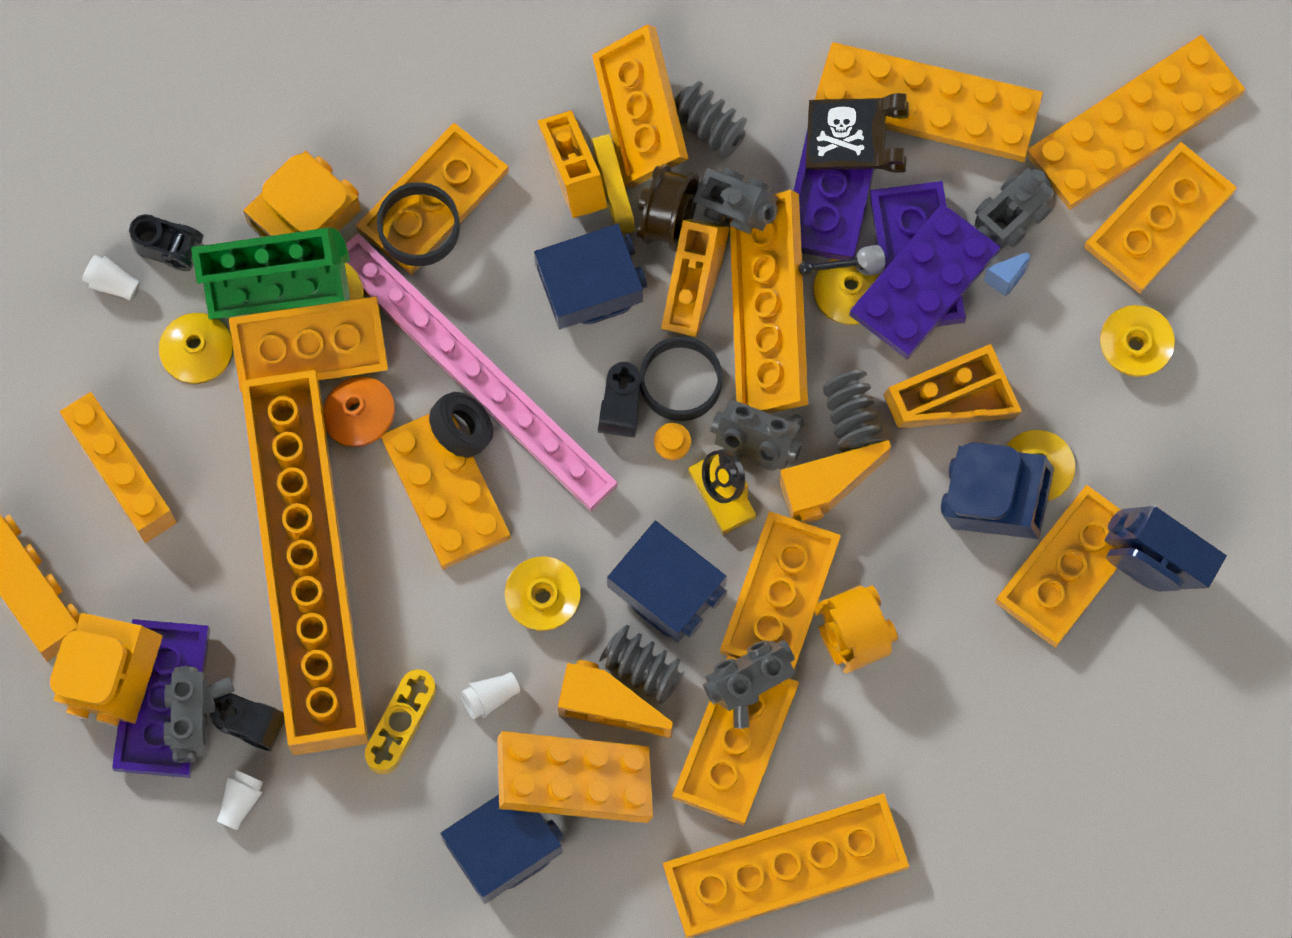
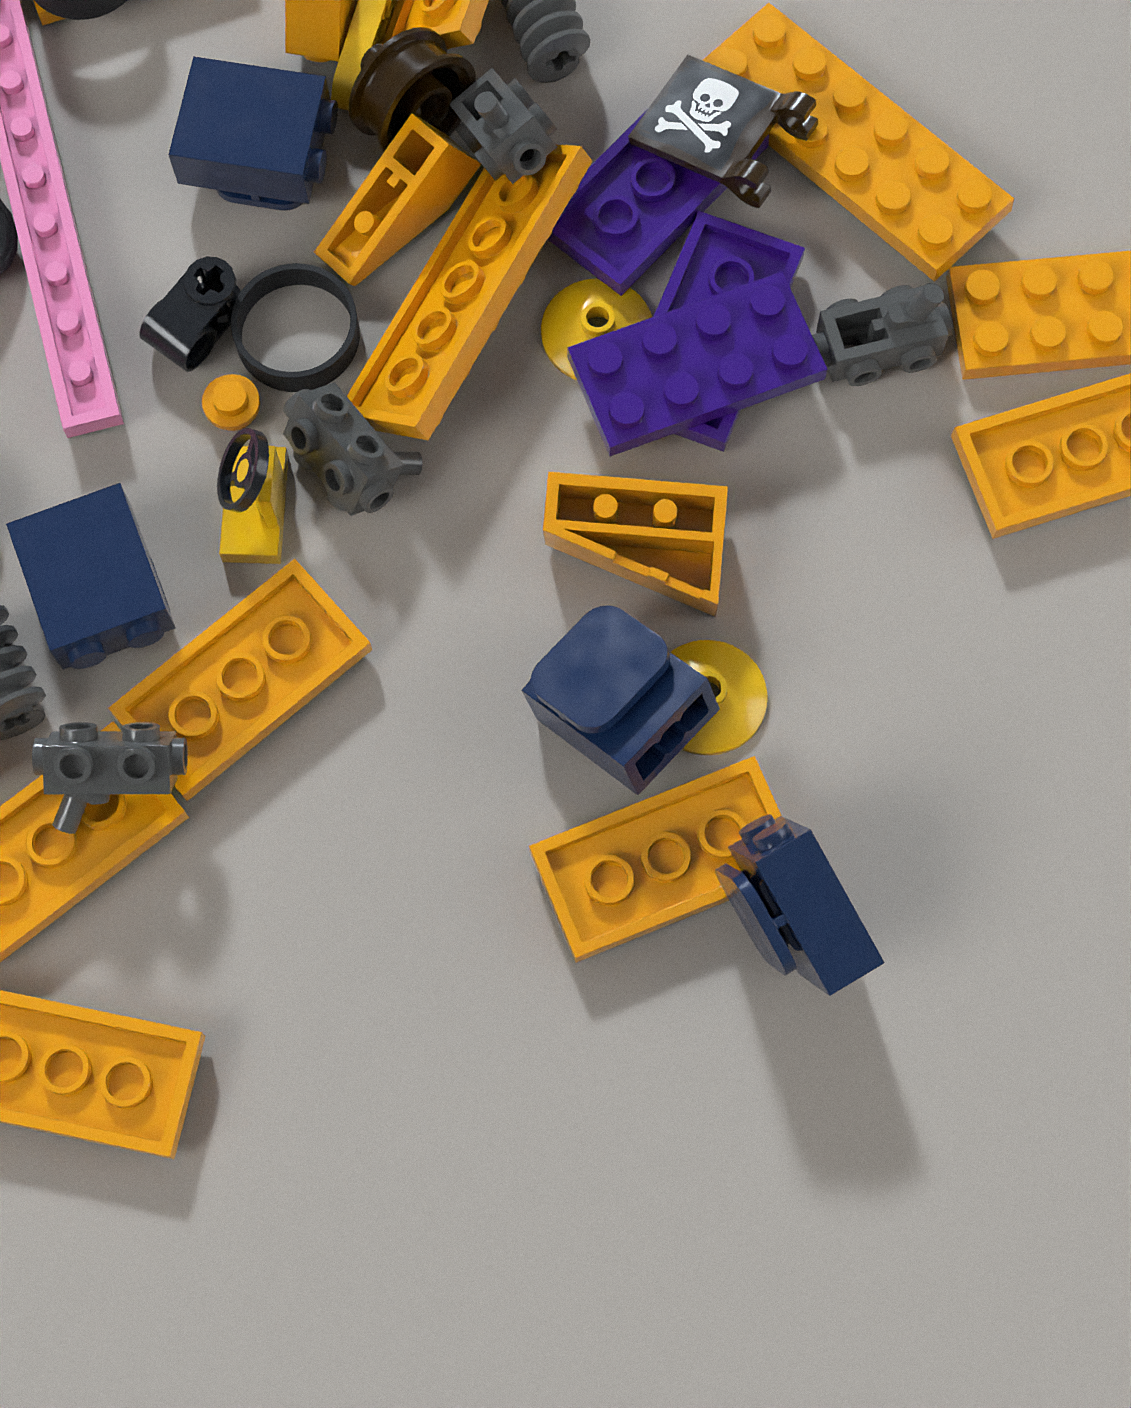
camera: 30 degrees right, 0 degrees up
(823, 483) = (400, 562): light orange slope -> none
(850, 411) = (486, 487): dark grey piece -> none
(855, 628) = (300, 778): light orange brick -> none
(868, 261) = (635, 299): hinge -> none
(1007, 274) = (821, 414): medium blue slope -> none
(1141, 325) = (951, 572): yellow dish -> none

